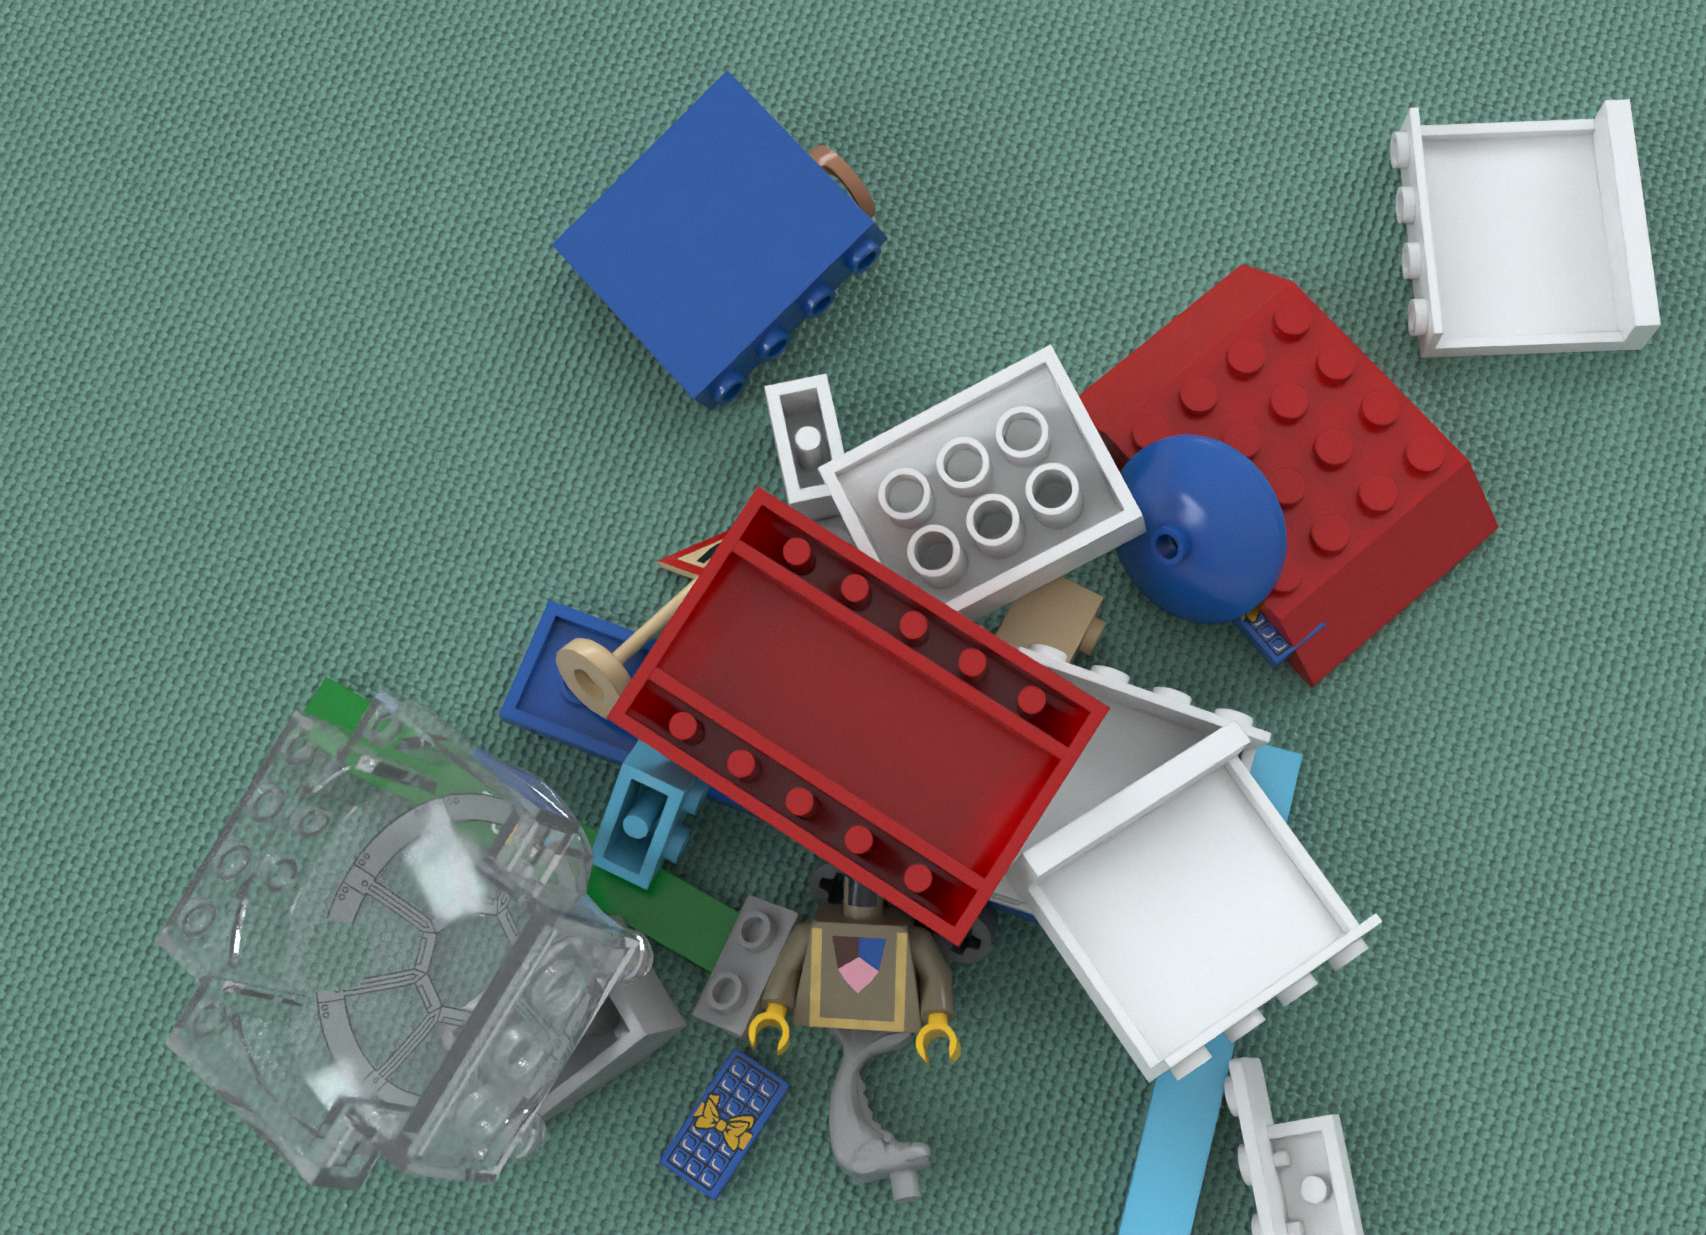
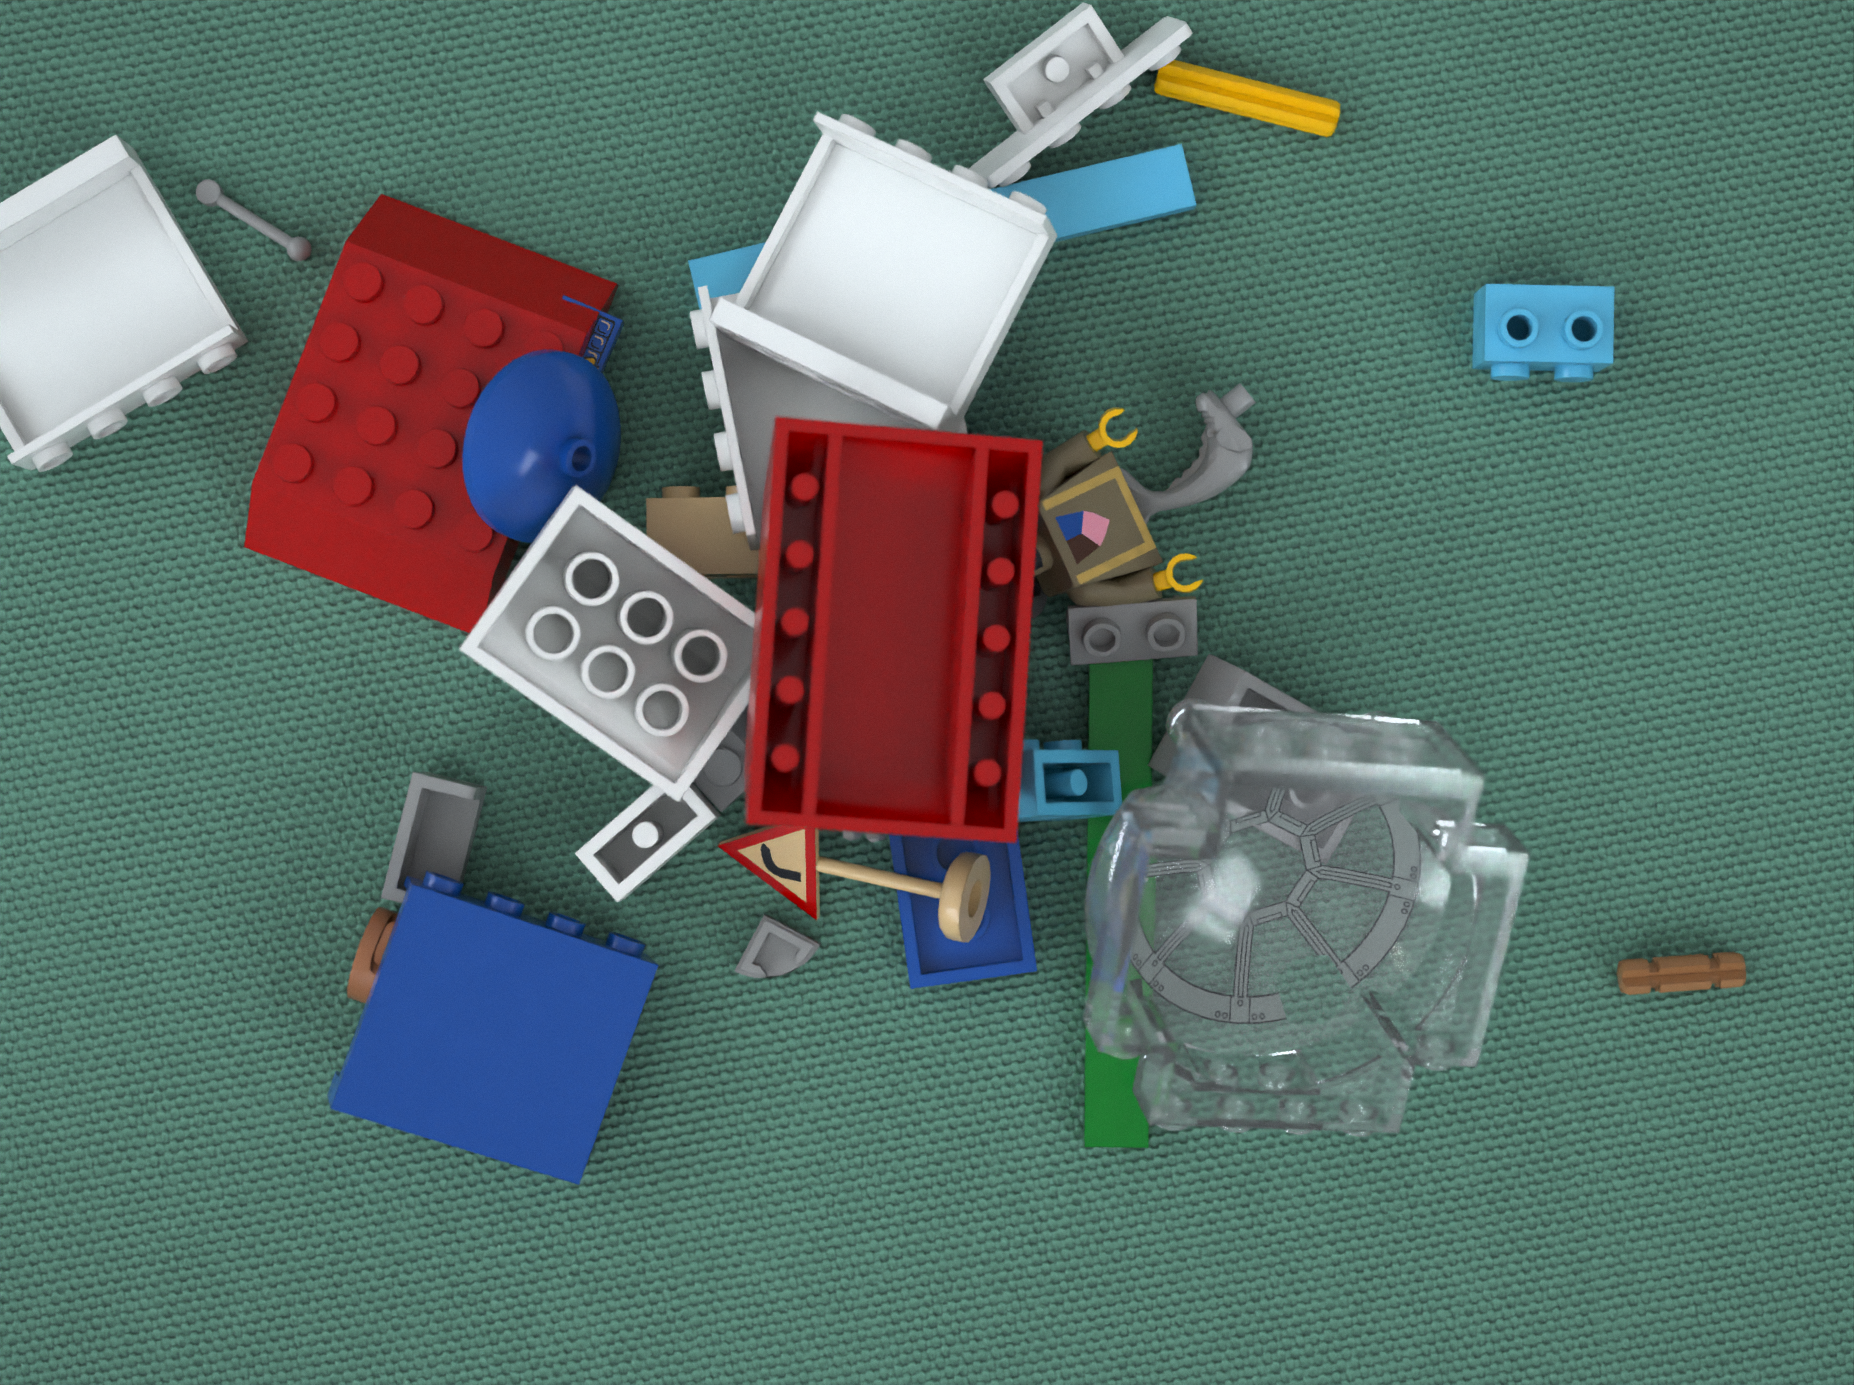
camera: 125 degrees left, 15 degrees up
(652, 513) = (775, 950): none -> light grey tile
(725, 1124) = (1267, 579): tile -> none
(913, 287) = (434, 830): none -> light grey panel
(1567, 390) = (212, 194): none -> light grey hinge

